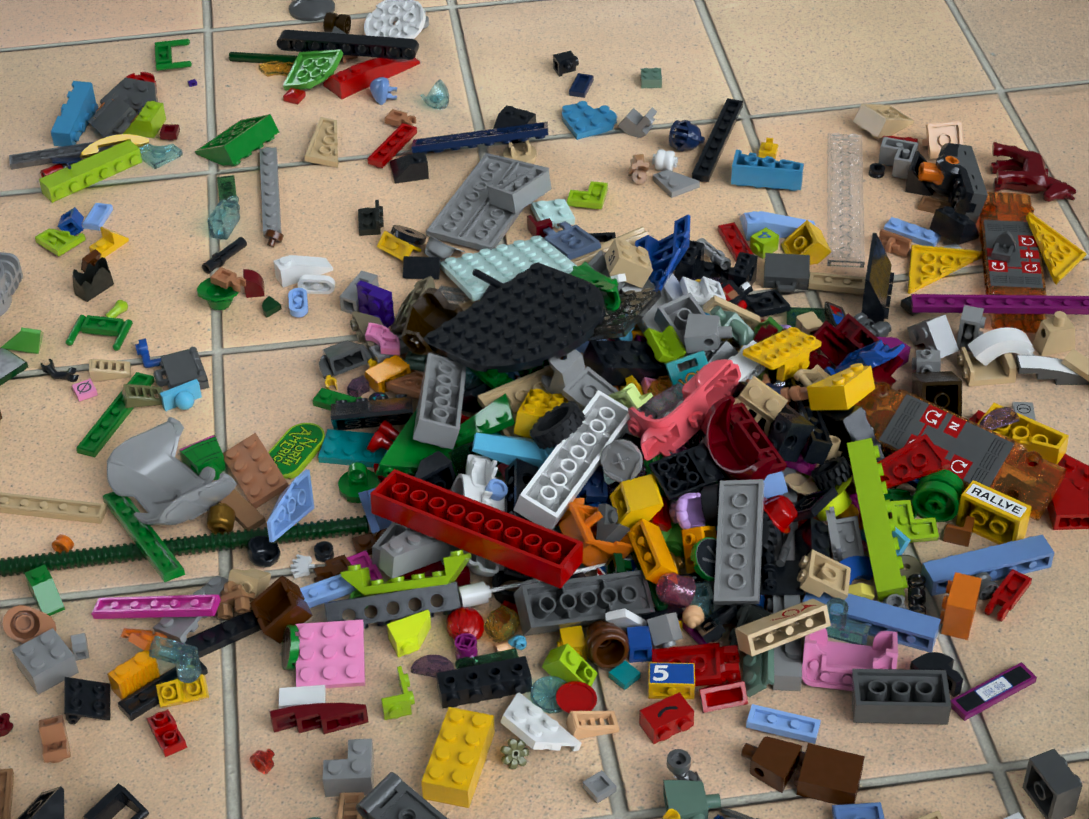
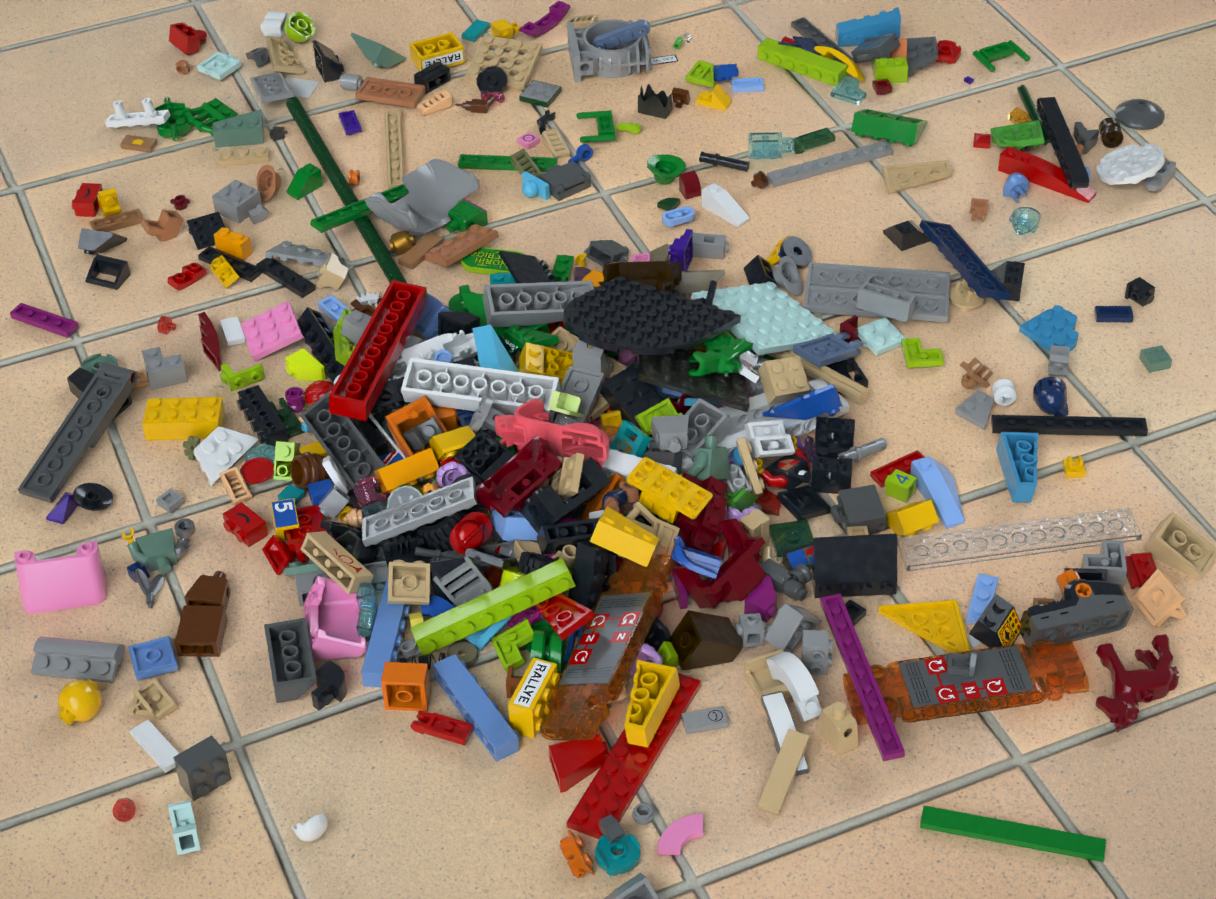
camera: 75 degrees right, 0 degrees up
(26, 341) = (571, 95): bright green slope -> none
(140, 638) = (261, 237): orange plate -> none
(156, 606) = (297, 234): dark pink tile -> none
(178, 653) = (246, 257): clear light blue brick -> none
(226, 278) = (674, 164): nougat plate -> none
(232, 597) = (311, 266): medium nougat hips -> none
(262, 552) = (370, 270): black hair -> none
(280, 606) = (307, 290): reddish brown piece -> none
(290, 647) = (267, 302): tile -> none
(291, 506) = (410, 265): light blue wedge -> none
(317, 284) = (705, 219): white plate -> none
(370, 220) = (815, 229): pearl dark grey bracket -> none
(392, 145) = (934, 214): red plate -> none
(431, 664) = (277, 389): clear purple tile -> none
(557, 425) = (504, 362): black tyre -> none
(617, 564) = (391, 456): dark green tile -> none
(783, 723) = (253, 596): light blue plate -> none
(876, 170) = (1079, 555): black bush -> none
(895, 243) = (946, 581): nougat hips -> none
(987, 586) = (447, 706): dark grey wheel -> none
(993, 691) = (321, 730): tile -> none
(999, 418) = (647, 671): tile -> none
(1056, 250) = (992, 717): yellow tile -> none

